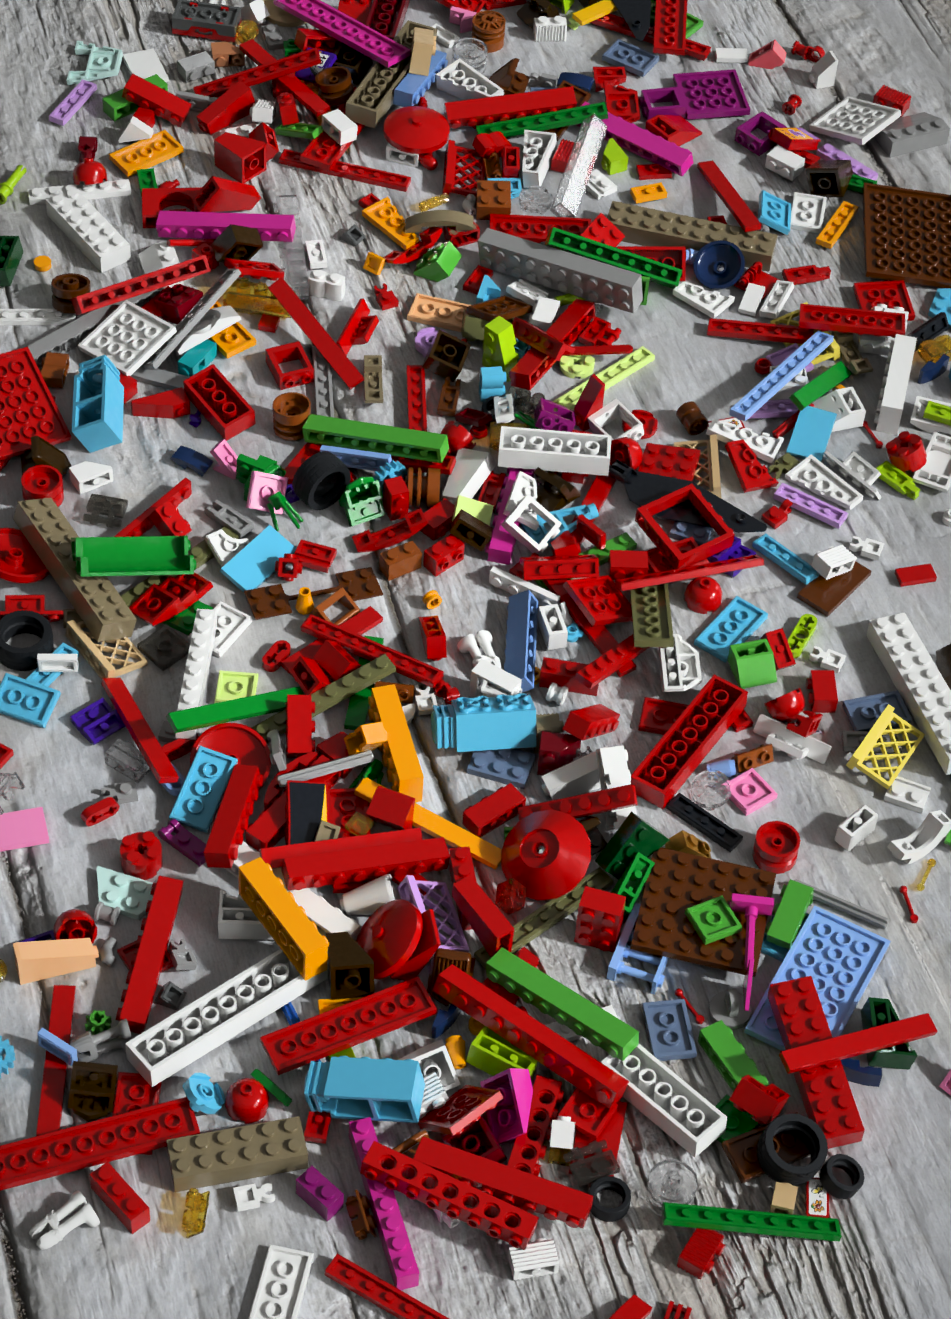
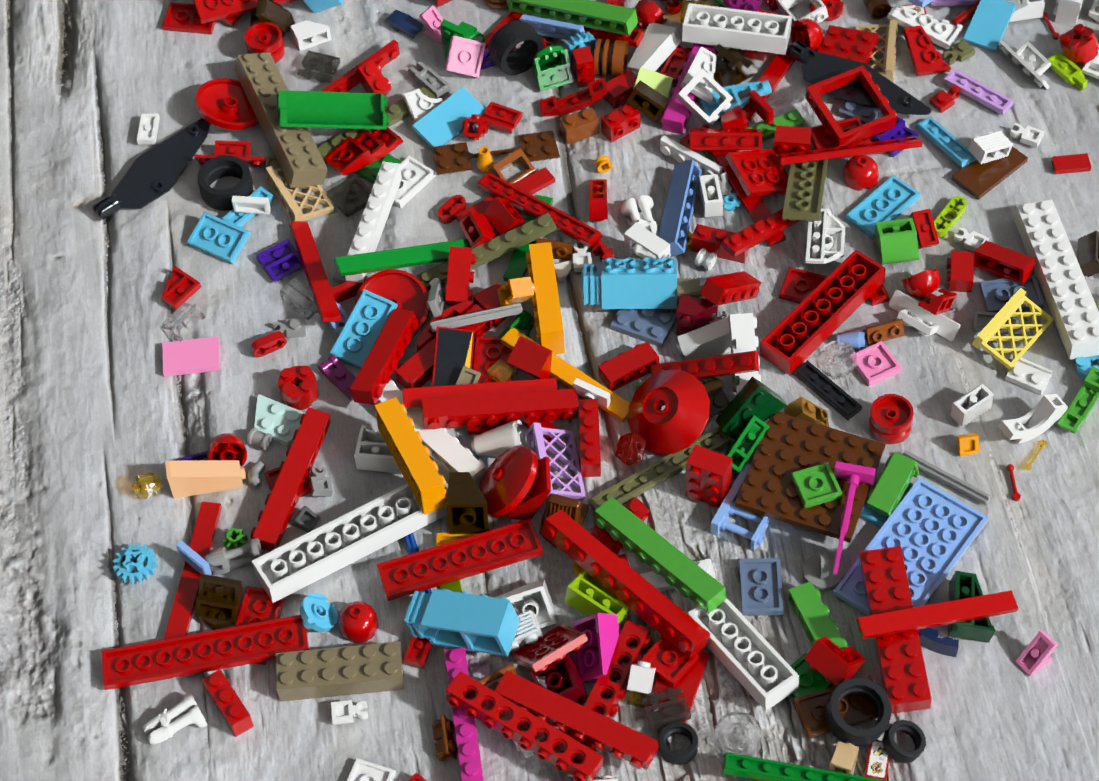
camera: 15 degrees right, 5 degrees up
(194, 1220) = (291, 730): clear yellow hinge -> none
(235, 685) = (410, 234): yellowish green tile -> none
(271, 1087) = (381, 611): green tile -> none
(279, 501) = (474, 65): green plant -> none
(319, 1193) = (408, 714): magenta brick -> none
(444, 1020) = (550, 562): dark blue slope -> none
(457, 1051) = (557, 591): light orange cone -> none
(460, 839) = (590, 391): none -> white plate
(483, 915) = (597, 465): red slope -> none
(699, 1018) = (792, 578): red hinge -> none
(824, 482) = (993, 68): white wing -> none
(857, 868) = (968, 444): none -> light orange tile
(866, 679) = (1004, 262): none -> red brick

